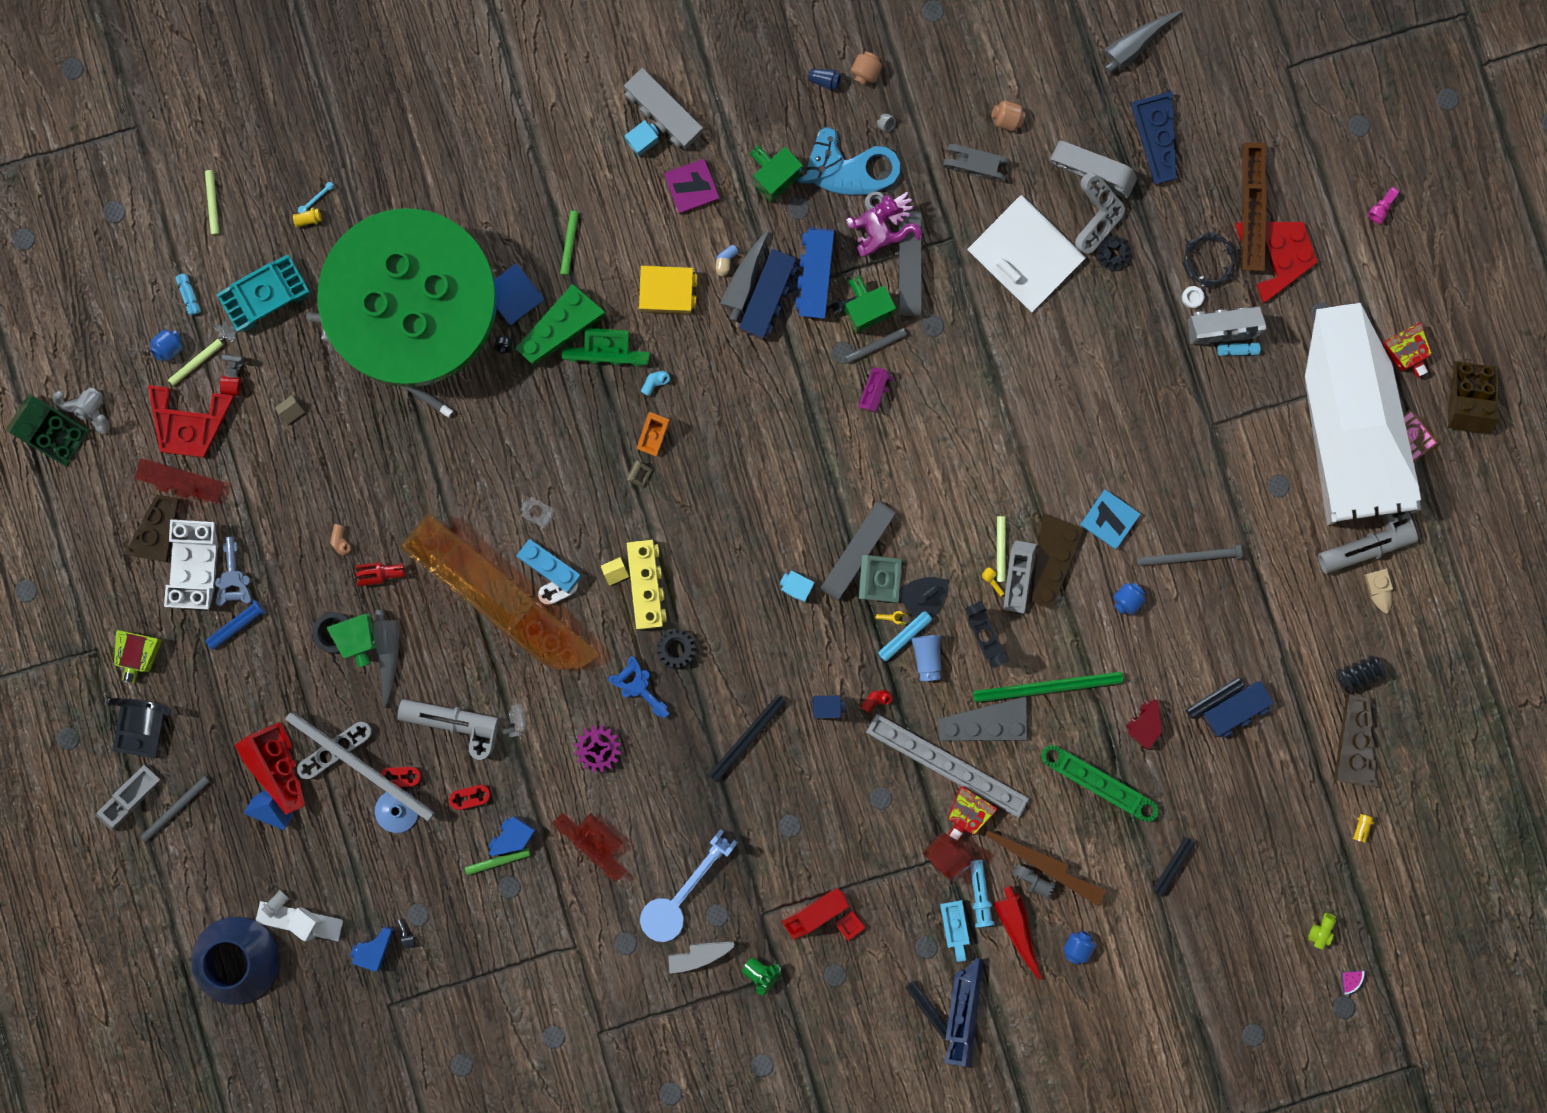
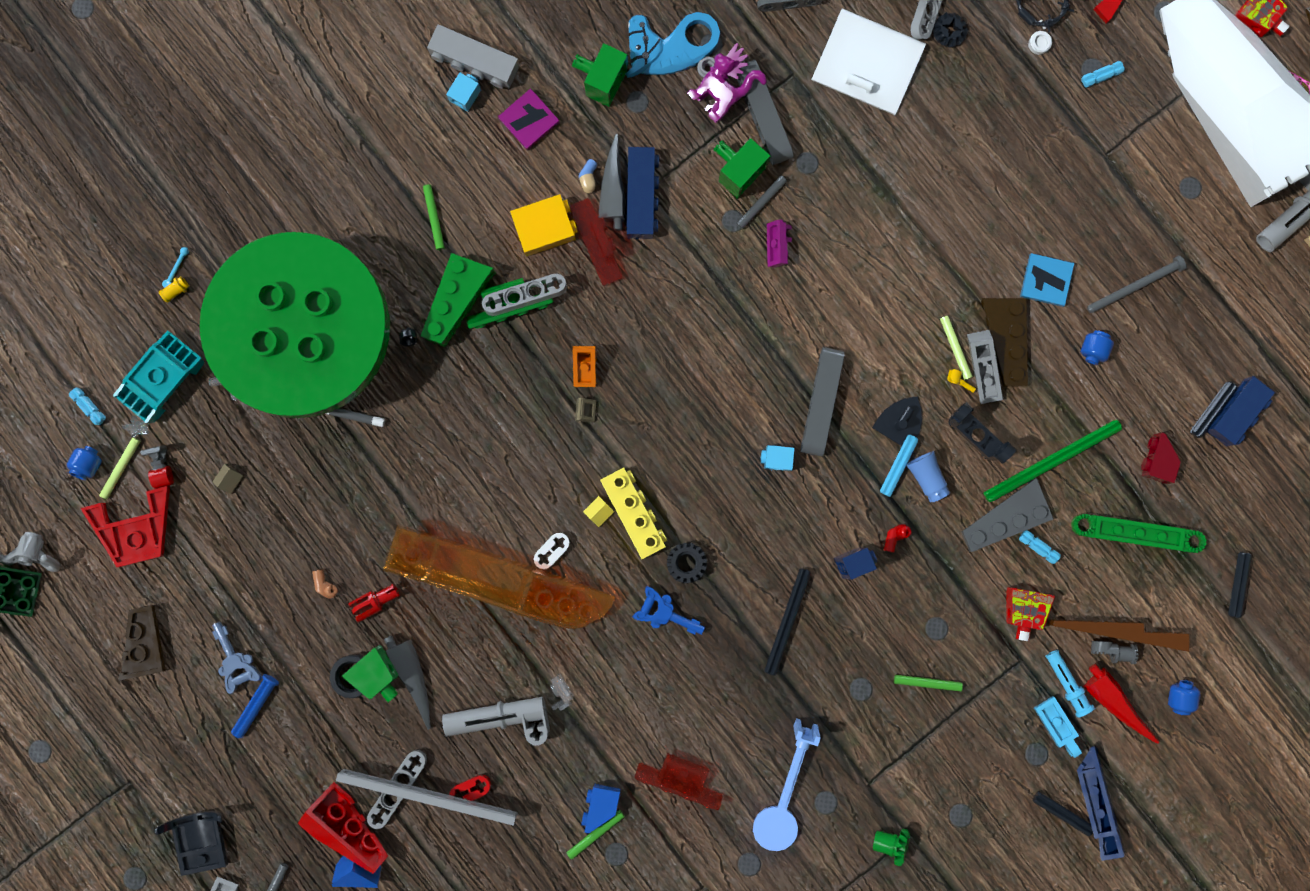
camera: 20 degrees left, 0 degrees up
(135, 653) = (167, 771): torso -> none
(183, 482) = (148, 588): clear red bracket -> none
(192, 564) = (190, 664): white slope -> none
(212, 204) = (77, 310): yellowish green bar -> none
(390, 822) = (474, 836): medium blue dish -> none
(468, 792) = (548, 787): red beam -> none
(515, 294) = (401, 285): blue slope -> none
(544, 519) = (510, 491): clear brick -> none
(548, 566) = (534, 531): dark azure plate -> none
(594, 739) = (655, 697): magenta gear -> none
(623, 351) = (525, 298): none -> light grey beam
(653, 380) = (565, 315): medium azure arm -> none
(699, 955) = (826, 849): light grey slope -> none
(709, 323) = (597, 244): none -> clear red bracket
(815, 913) = (921, 765): red slope -> none
(816, 272) = (679, 153): blue wedge -> none
(839, 306) = (713, 177): black hand -> none
(849, 925) = (956, 762): red tile -> none
(852, 843) = (929, 683): none -> bright green bar
(880, 578) = (854, 420): sand green plate -> none
(895, 617) = (881, 452): yellow hand -> none
(947, 765) = (987, 573): light grey tile -> none
(947, 858) = (1026, 662): clear red brick -> none
(1004, 760) = (1039, 547): none -> medium azure axle
(1226, 325) = (1086, 54): light grey wedge -> none

